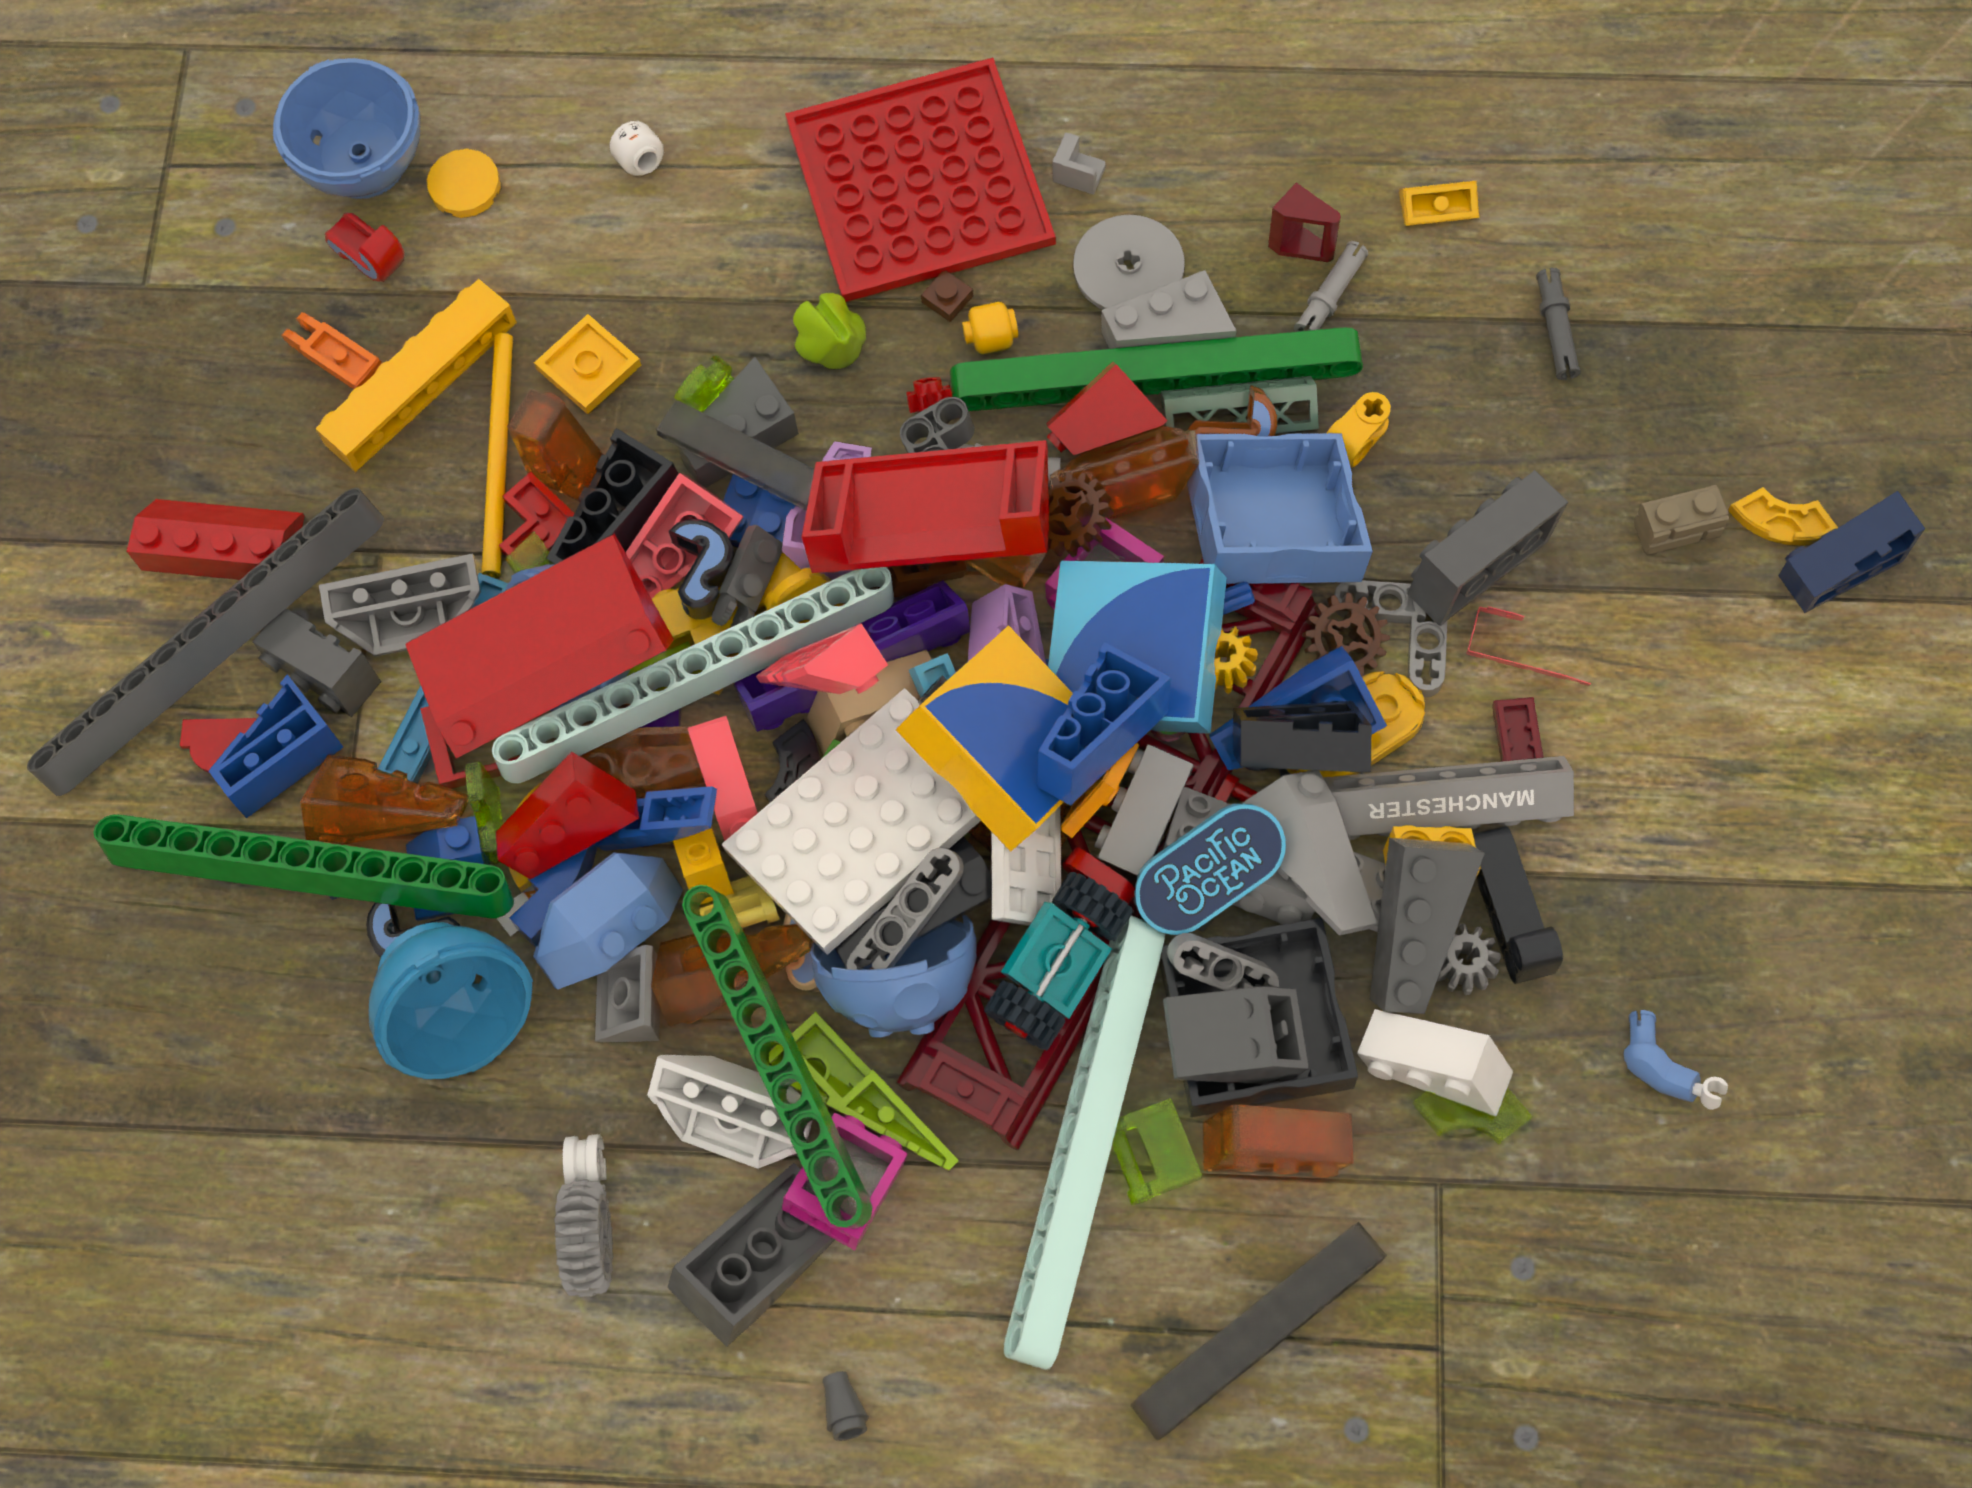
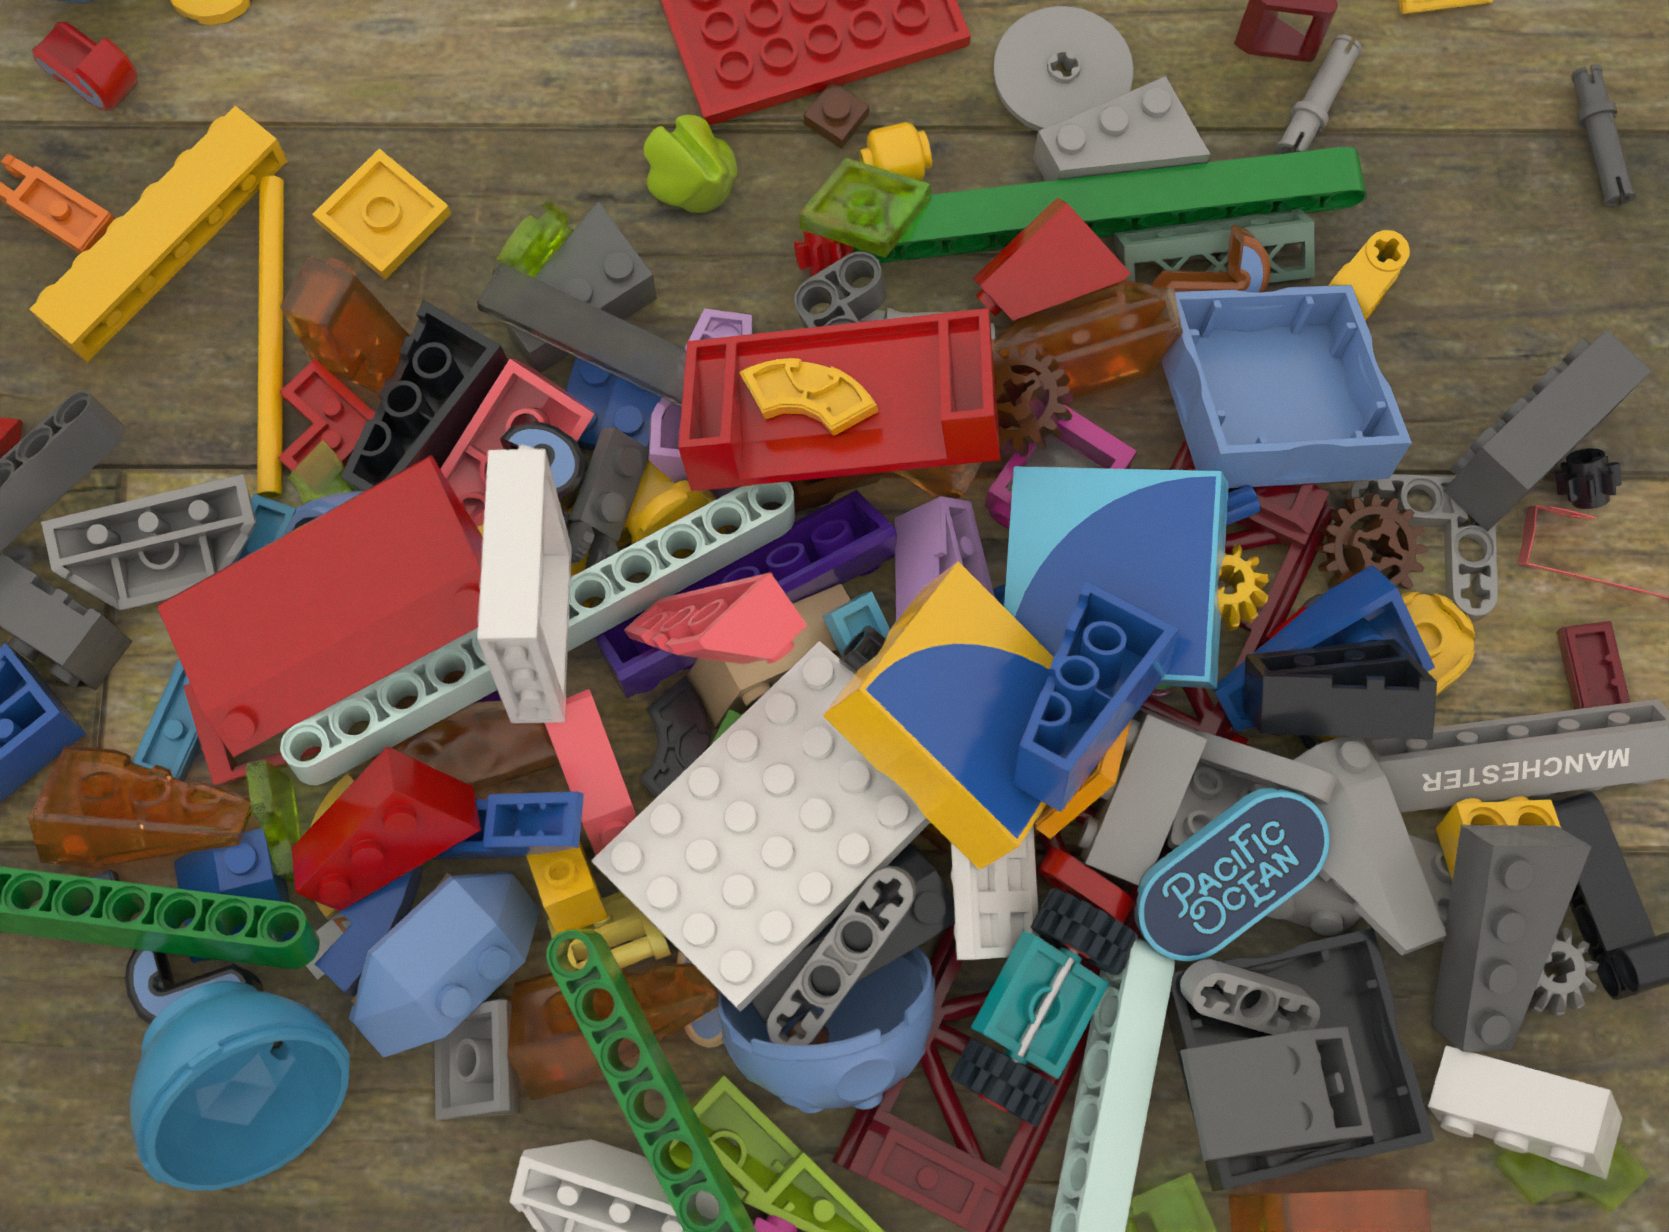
camera: 10 degrees left, 5 degrees up
(676, 639) = (525, 586): none -> white window
(905, 499) = (809, 390): none -> yellow tile
(961, 365) = (865, 207): none -> clear neon green tile
(1238, 790) = (1267, 768): none -> light grey beam
(1523, 587) = (1588, 478): none -> black gear

